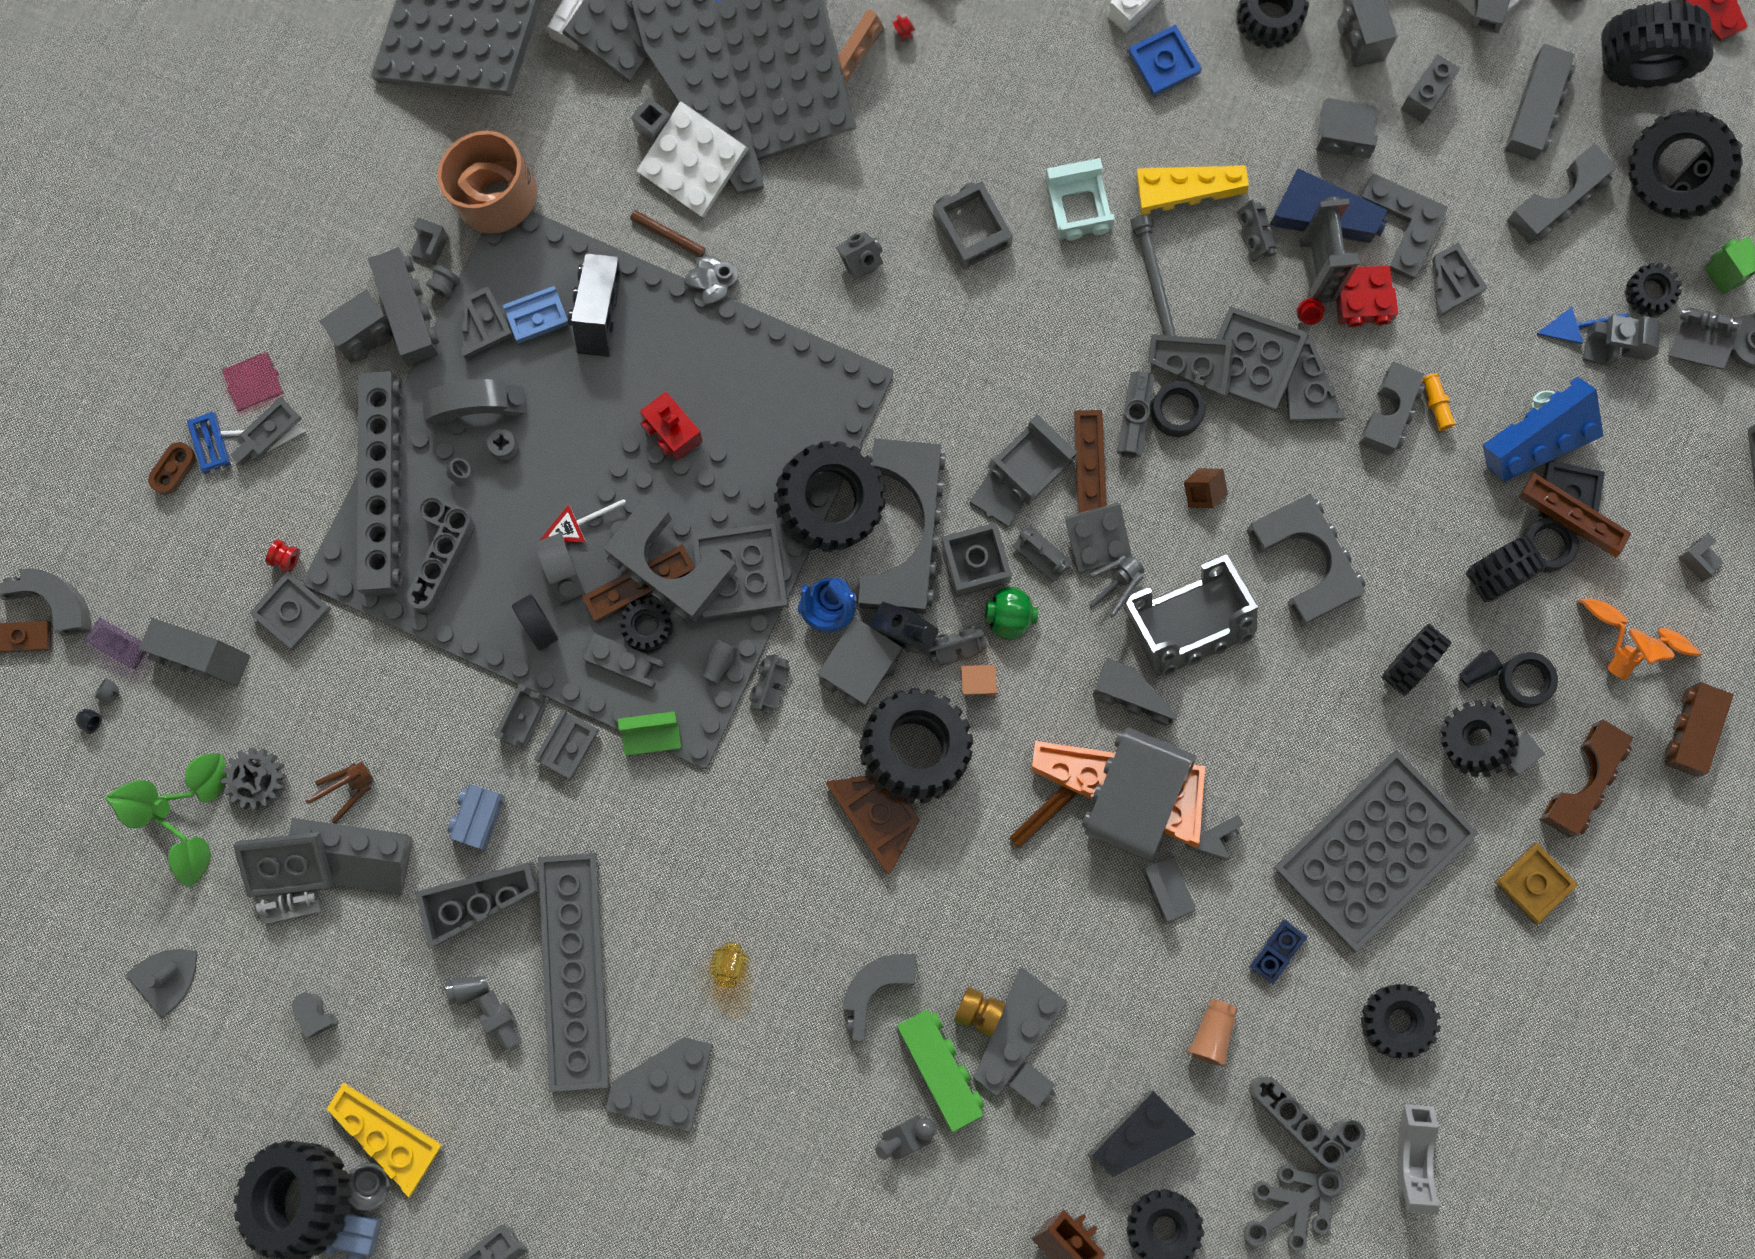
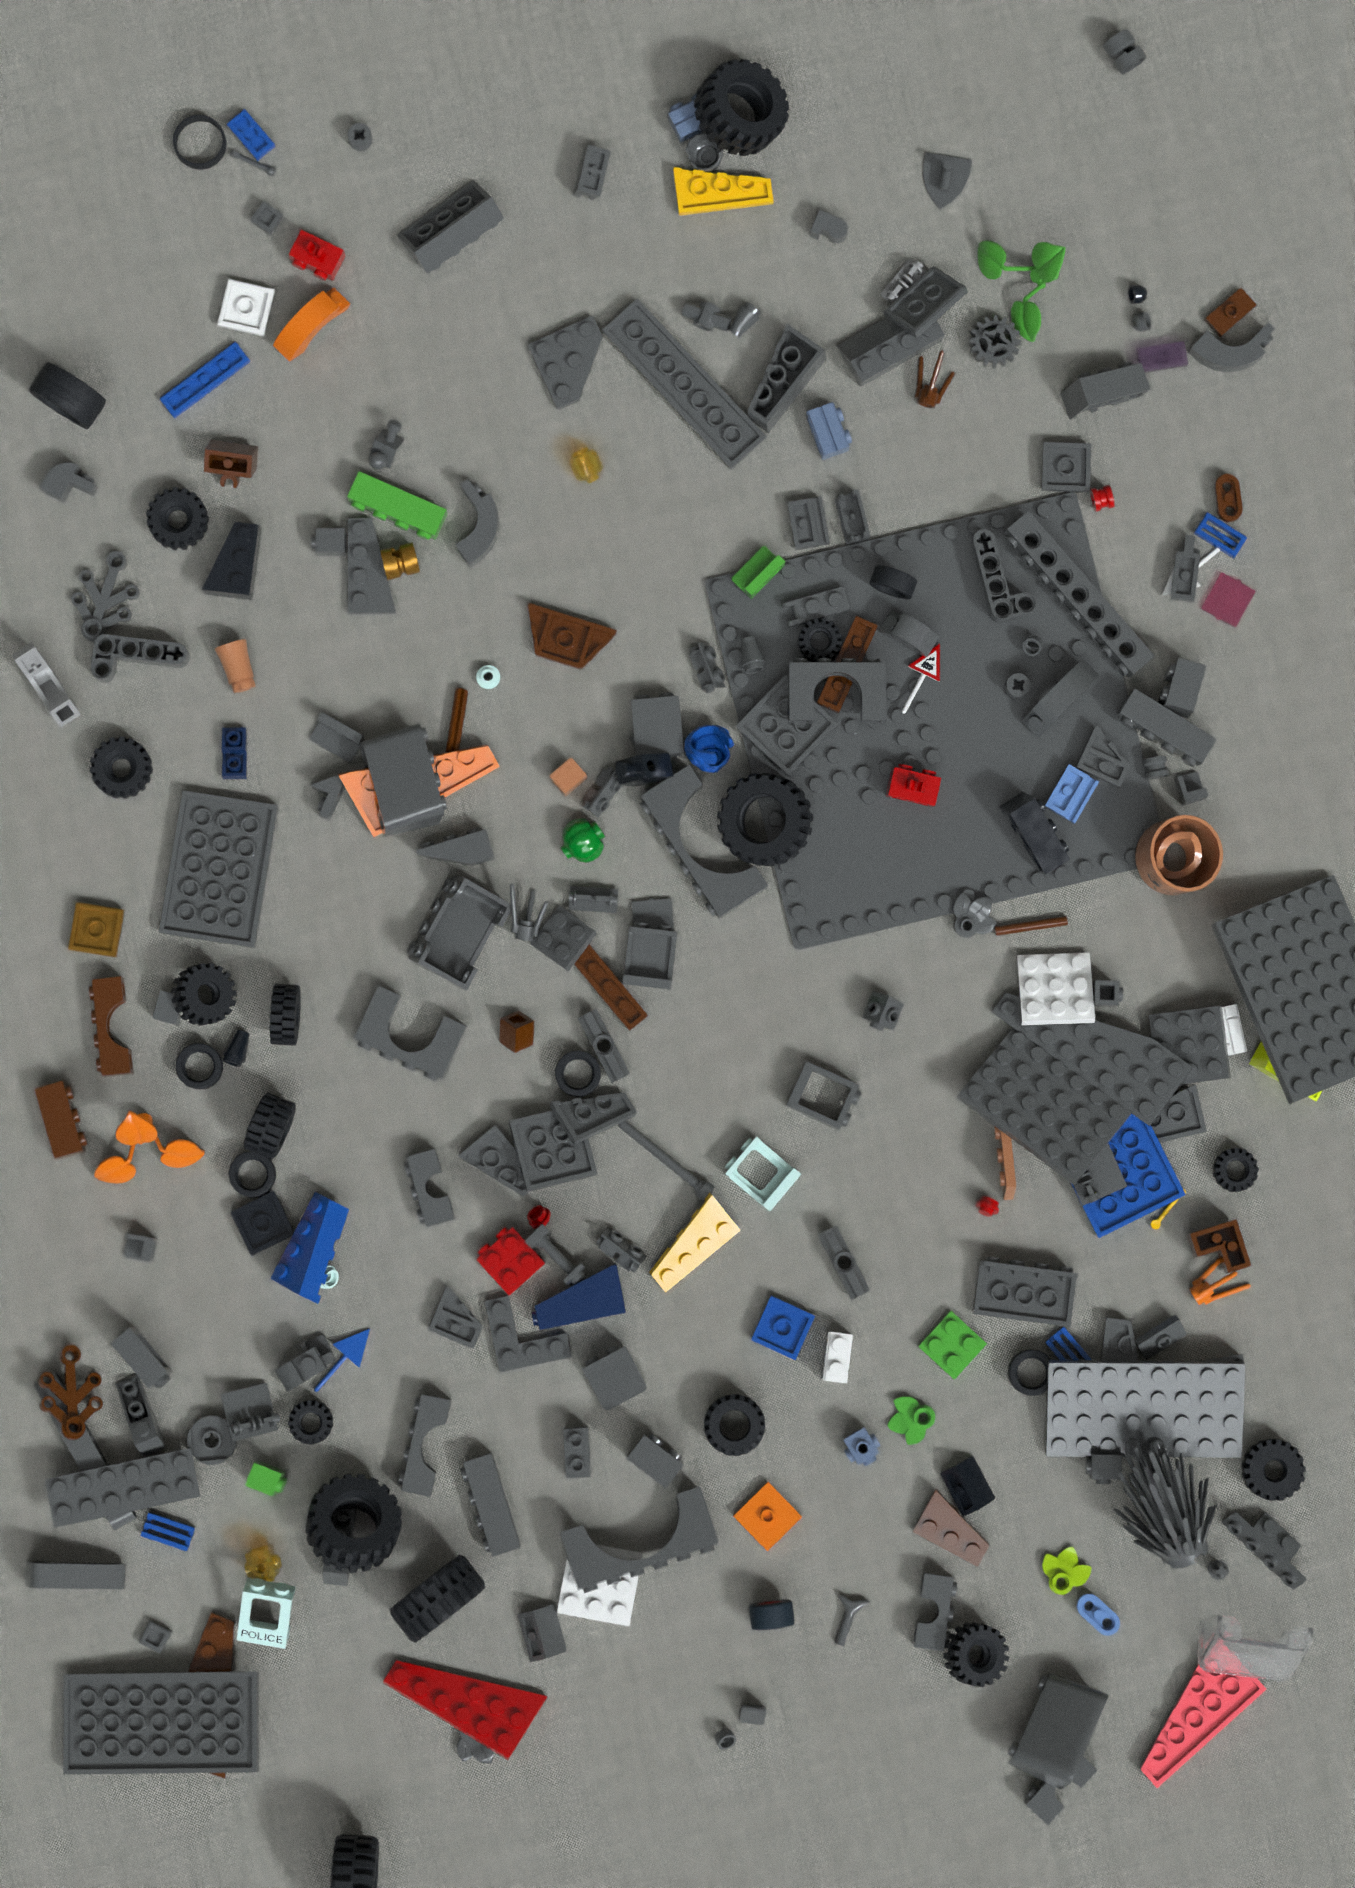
camera: 140 degrees right, 5 degrees up
(938, 718) = (574, 730): black tyre -> none
(976, 559) = (633, 856): dark grey brick -> none
(980, 844) = (488, 684): none -> light aqua plate
(1066, 86) = (851, 1277): none -> dark grey piece
(1438, 402) = (401, 1219): light orange pin -> none
(1575, 515) = (249, 1204): reddish brown plate -> none

